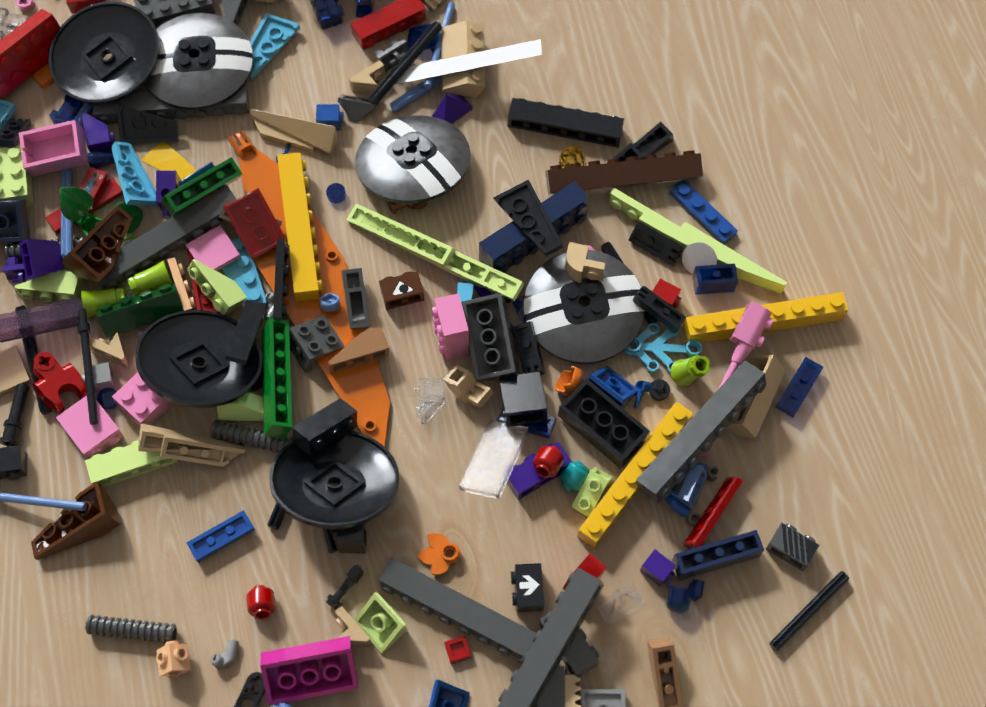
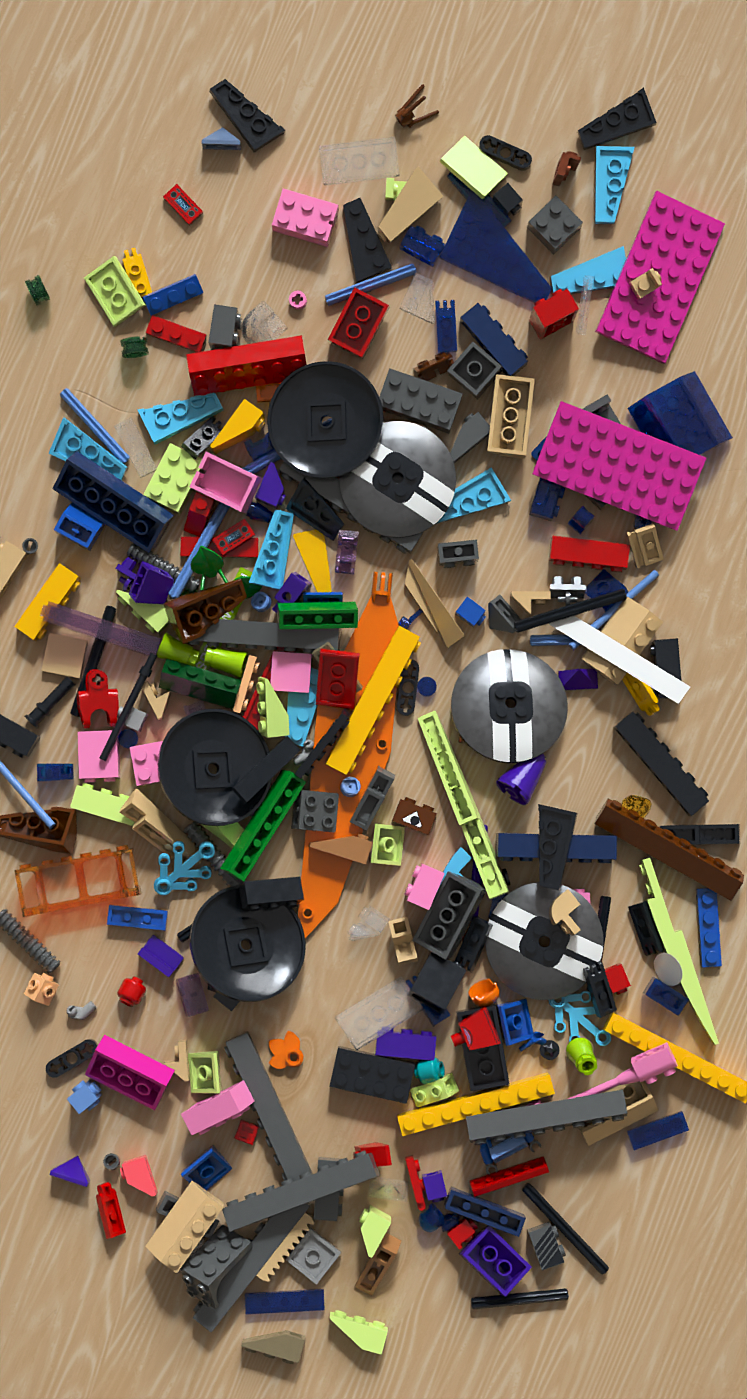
camera: 35 degrees right, 20 degrees up
(37, 102) = (241, 425): none -> yellow slope
(48, 189) = (199, 514): none -> red slope
(58, 468) = (54, 772): none -> clear blue leg
(149, 220) = (261, 601): none -> medium blue tile
(159, 555) = (85, 898): none -> clear orange windscreen
(193, 136) = (346, 552): none -> clear purple brick
(231, 465) = (183, 870): none -> medium azure plant
(266, 554) = (161, 955): none -> dark purple panel
(285, 81) = (458, 552): none -> dark grey brick
(318, 565) = (192, 994): none -> hinge
(321, 211) = (410, 702): none -> black beam
(353, 576) = (185, 1029): black hinge -> none
(396, 326) = (387, 844): none -> yellowish green slope
(414, 639) = (218, 1108): none -> bright pink brick
(466, 204) = (522, 779): none -> dark purple cone
(506, 84) = (642, 694): none -> yellow hinge
(523, 69) = (667, 658): none -> black brick
(528, 587) = (329, 1128): black brick -> none
(529, 514) = (372, 1074): none -> black brick
(548, 461) = (414, 1050): red head -> none
(588, 404) = (476, 1031): none -> red torso
(635, 642) = (373, 1228): none -> yellowish green slope
(641, 578) = (417, 1184): none -> red hinge
(714, 590) = (463, 1232): none -> red brick
(762, 590) = (495, 1260): none -> dark purple slope
(798, 522) = (565, 1228): none -> black axle

